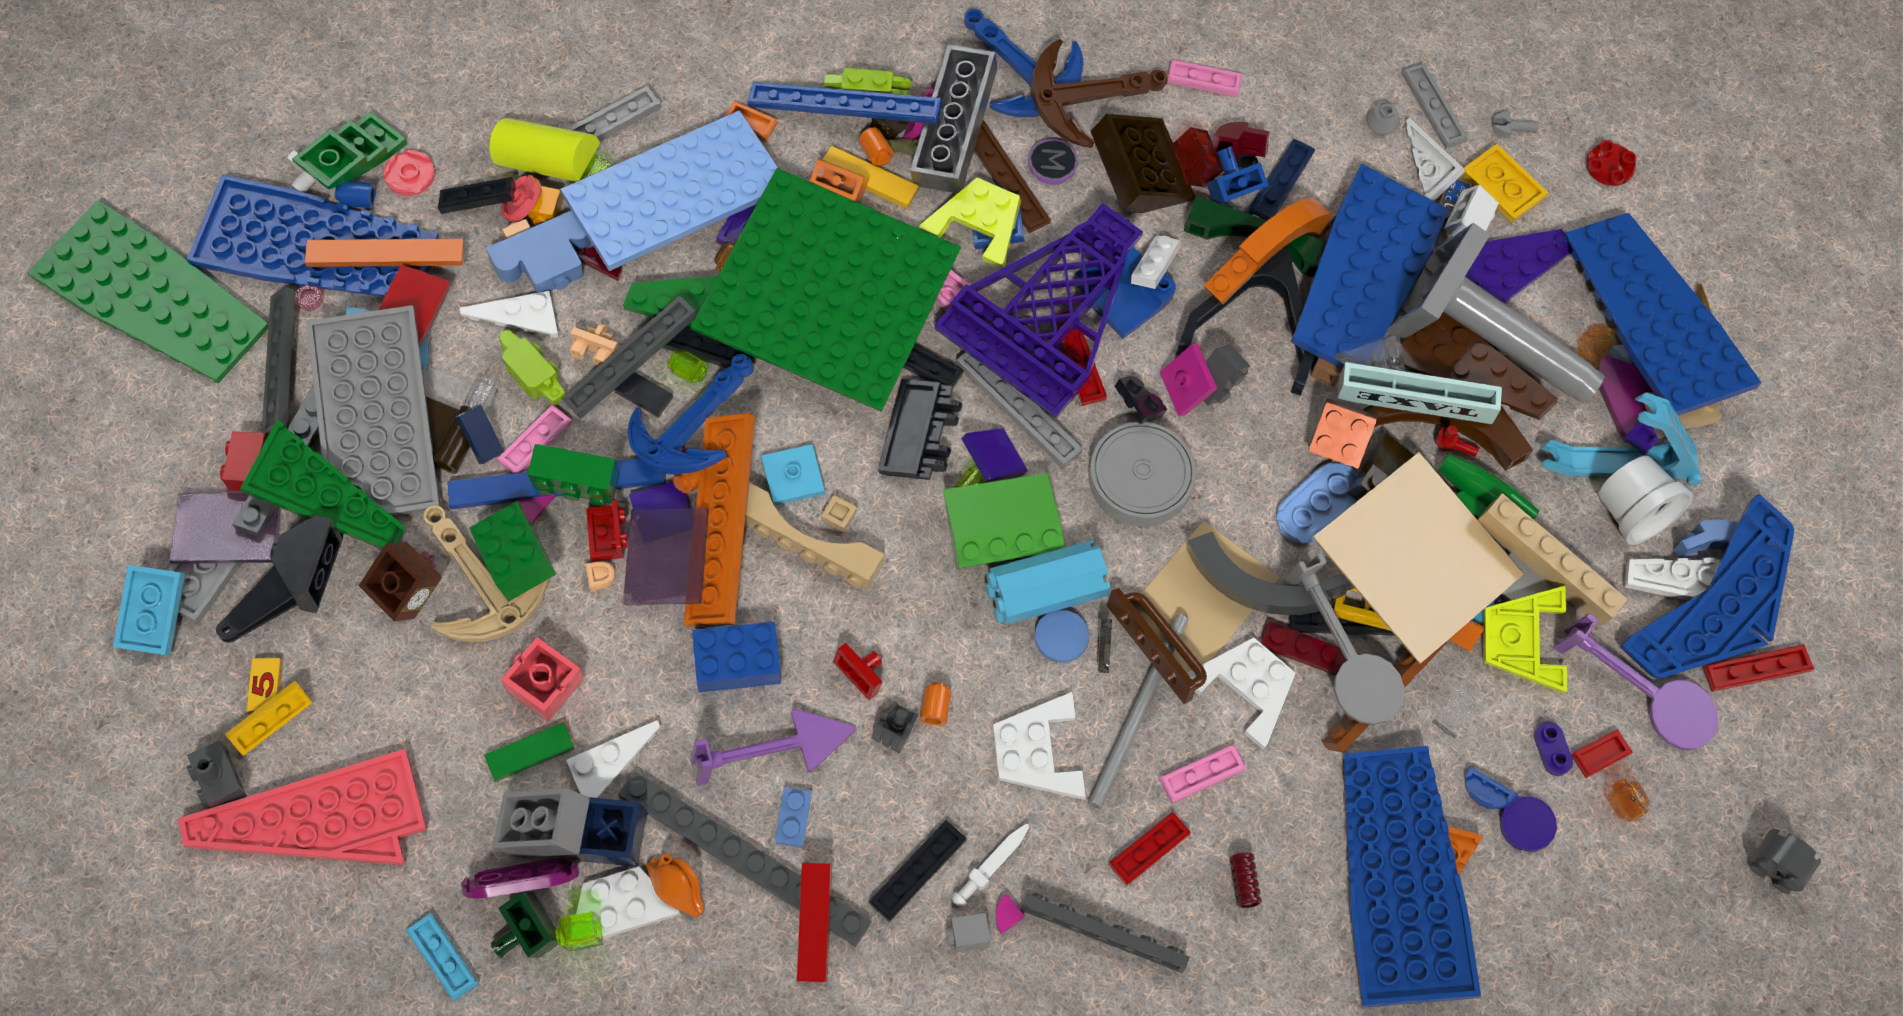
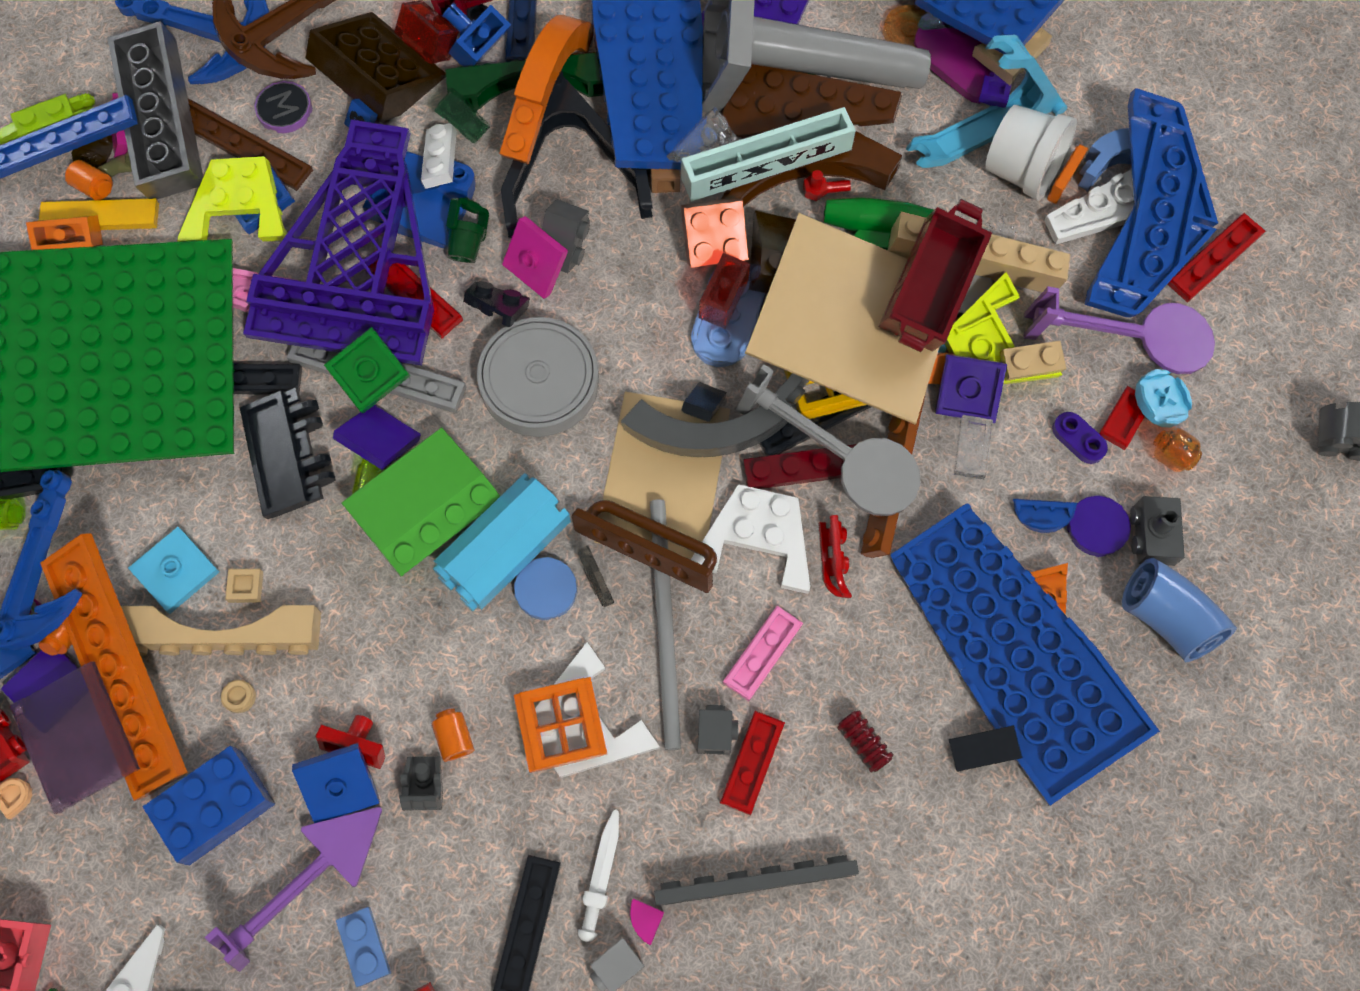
camera: 25 degrees left, 5 degrees up
(793, 591) = (238, 696): none -> tan tile
(834, 691) = (336, 783): none -> blue plate
(996, 732) = (588, 717): none -> orange piece
(1013, 401) = (367, 370): none -> green tile
(1109, 197) = (360, 112): none -> blue tile
(1134, 809) = (716, 730): none -> dark grey brick
(1141, 335) = (465, 236): none -> dark green piece
(1190, 239) = (462, 116): none -> clear green leg
(1261, 560) = (703, 401): none -> black tile
(1299, 739) = (838, 564): none -> red piece
(1324, 482) = (724, 290): none -> clear red brick
(1336, 936) = (985, 748): none -> black tile
(1483, 661) = (970, 387): none -> dark purple tile
(1498, 558) = (936, 277): none -> dark red container
(1547, 667) = (1033, 360): none -> tan plate
(1551, 920) = (1176, 610): none -> medium blue brick
(1573, 853) = (1158, 530): none -> dark grey brick
(1641, 754) = (1163, 398): none -> medium azure tile
(1667, 535) = (1067, 173): none -> orange tile

